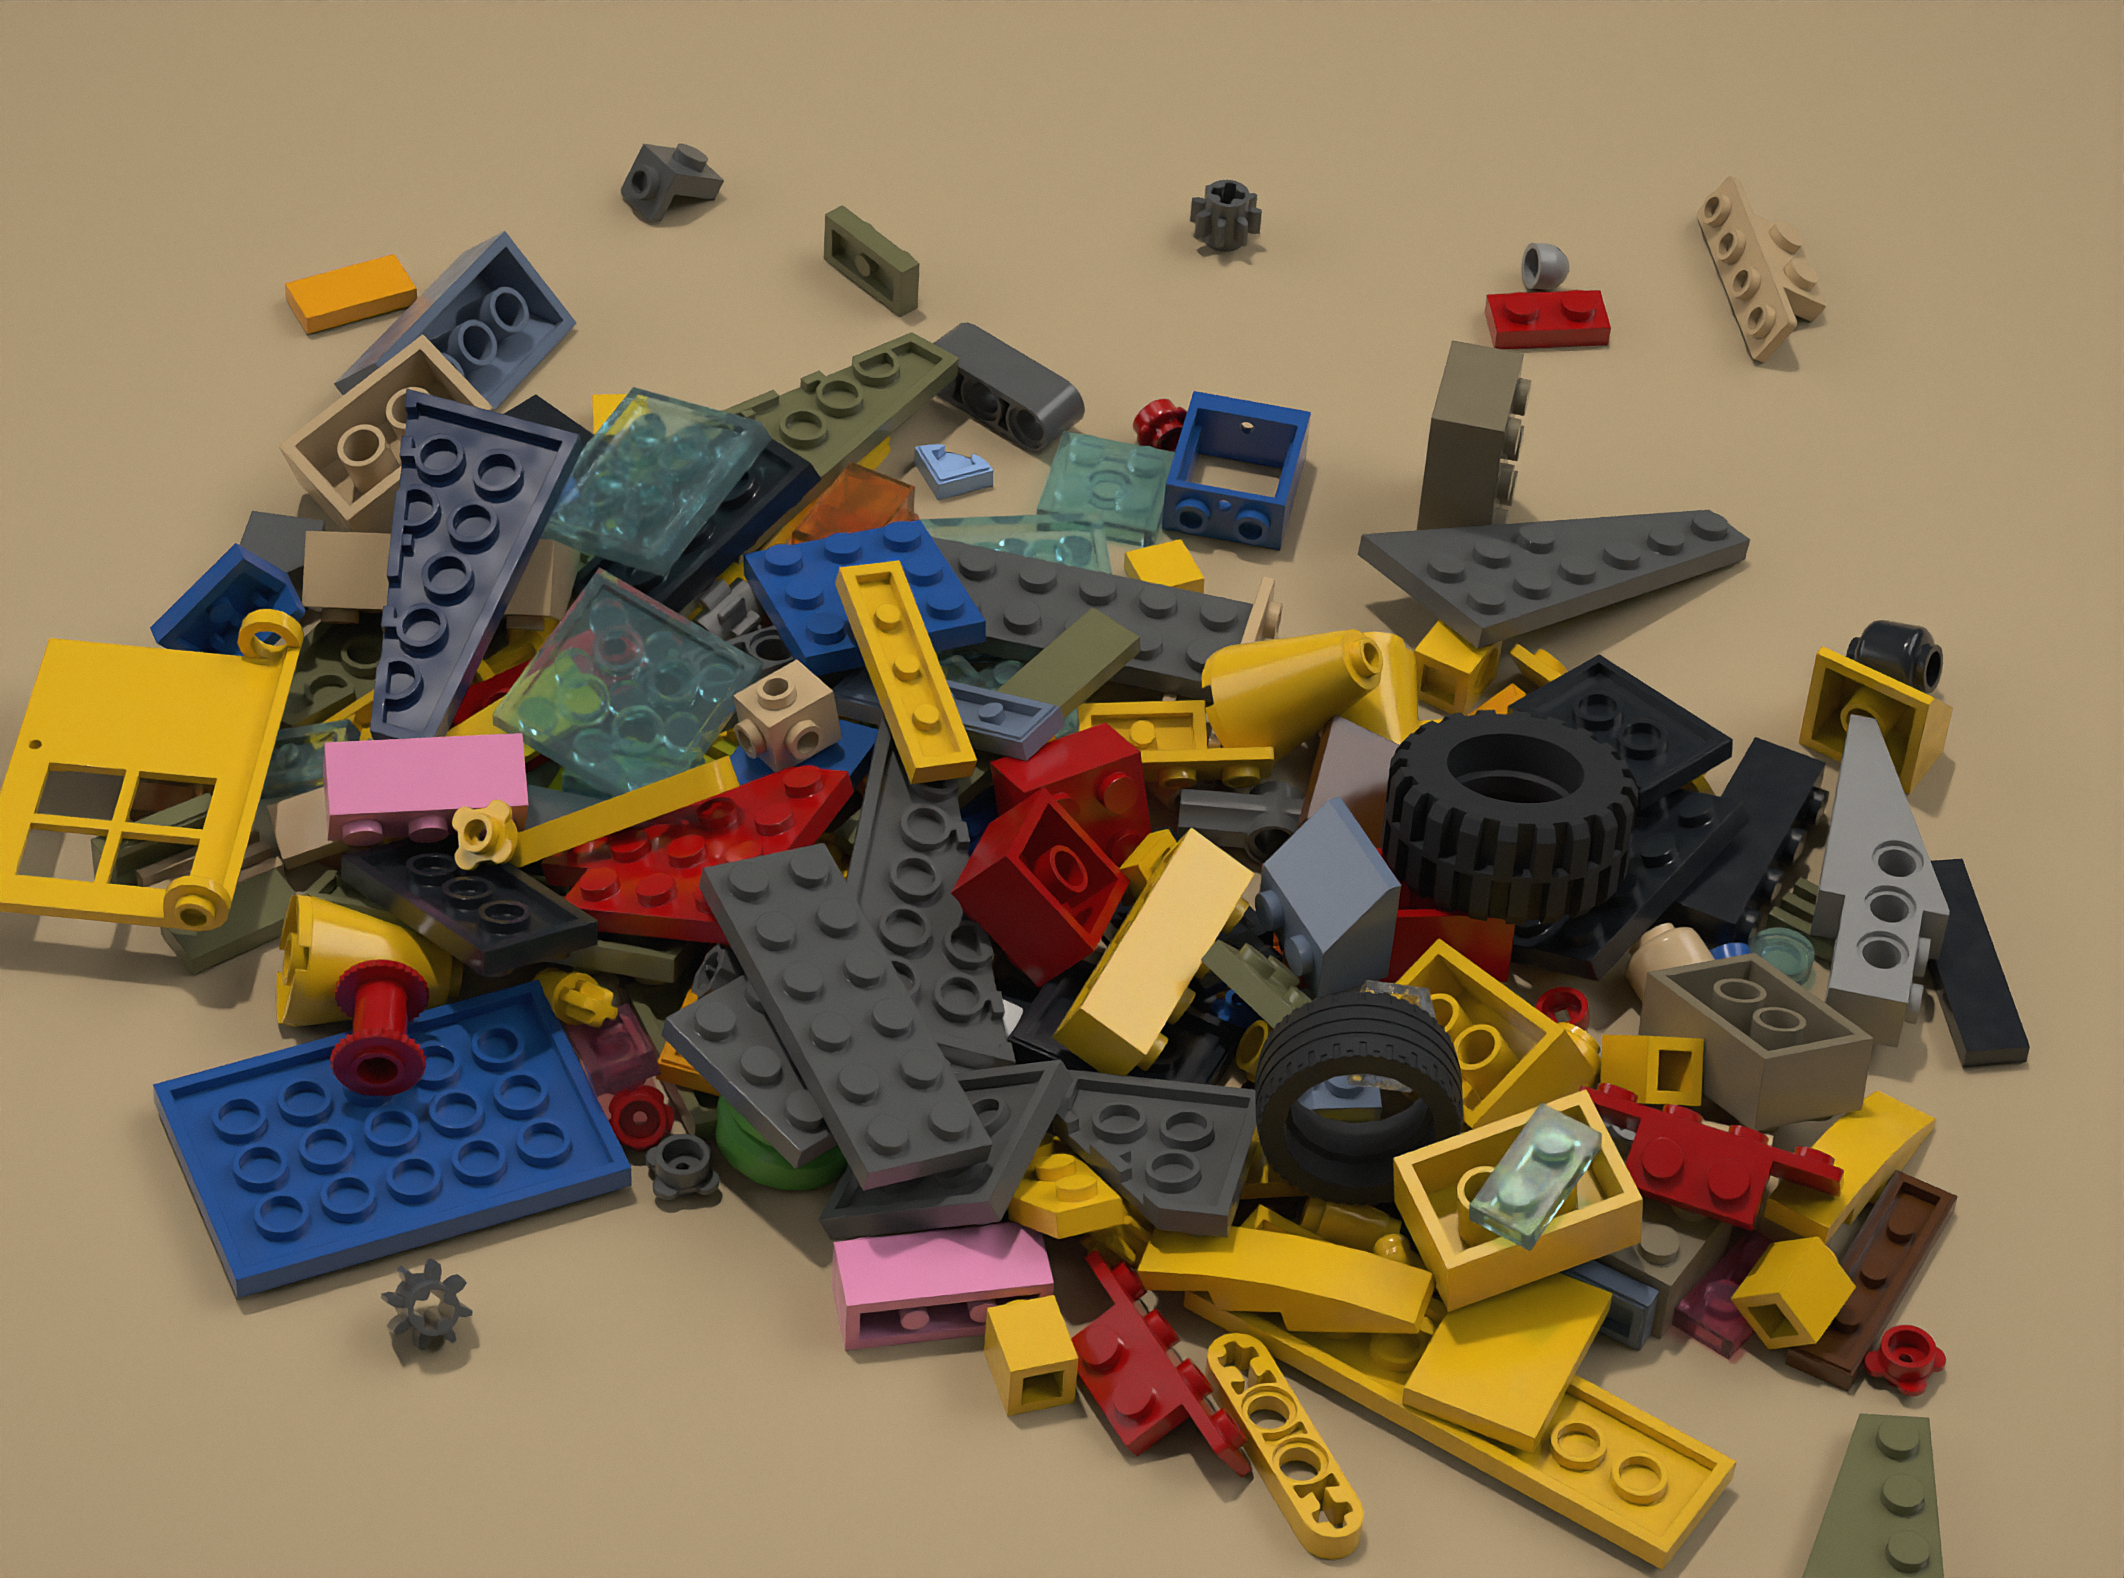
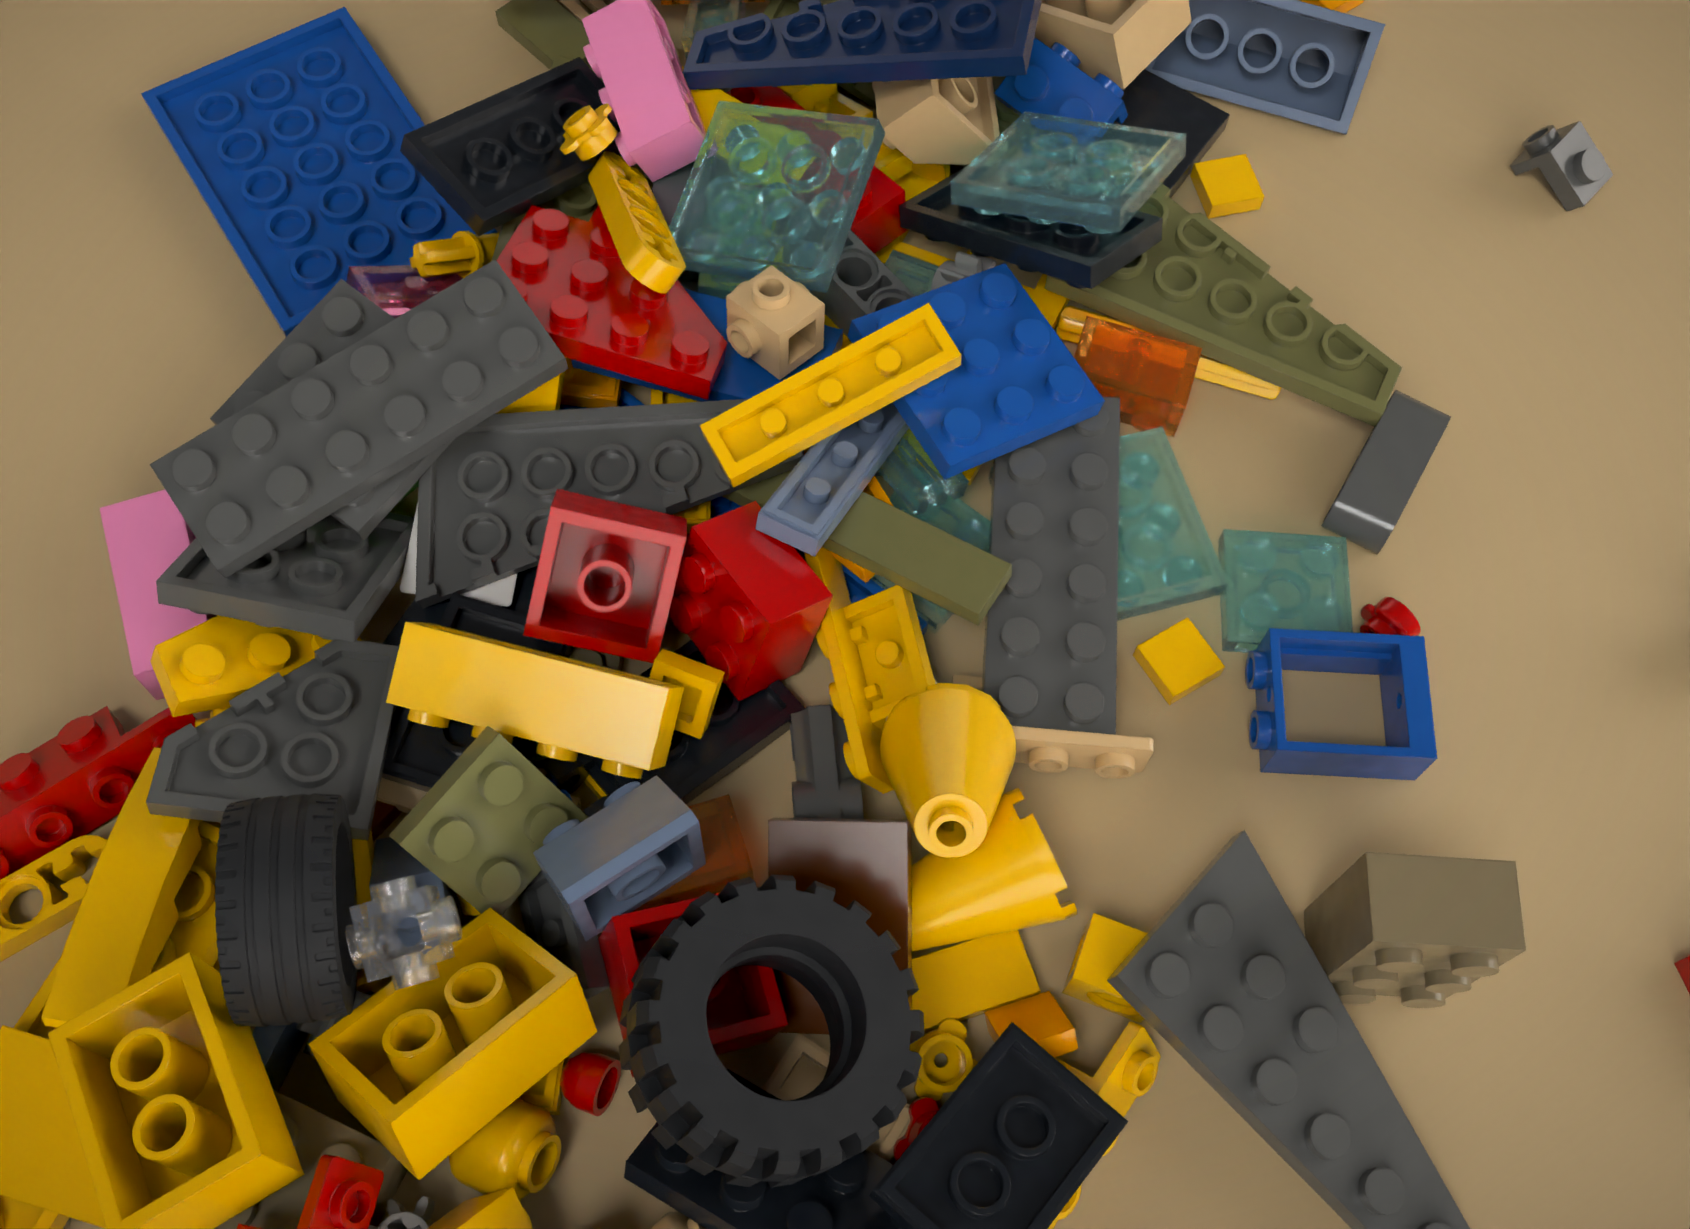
camera: 80 degrees right, 20 degrees up
(329, 939) = (469, 63): yellow cone -> none
(381, 1002) = (380, 115): red hose -> none
(435, 1320) = (120, 217): dark grey gear -> none
(871, 261) = (1511, 352): olive plate -> none
(951, 473) = (1260, 452): light blue tile -> none
(1030, 1355) = (81, 675): yellow brick -> none
(1535, 1176) = (134, 1110): clear light blue plate -> none
(1565, 999) = (593, 1136): red hinge -> none

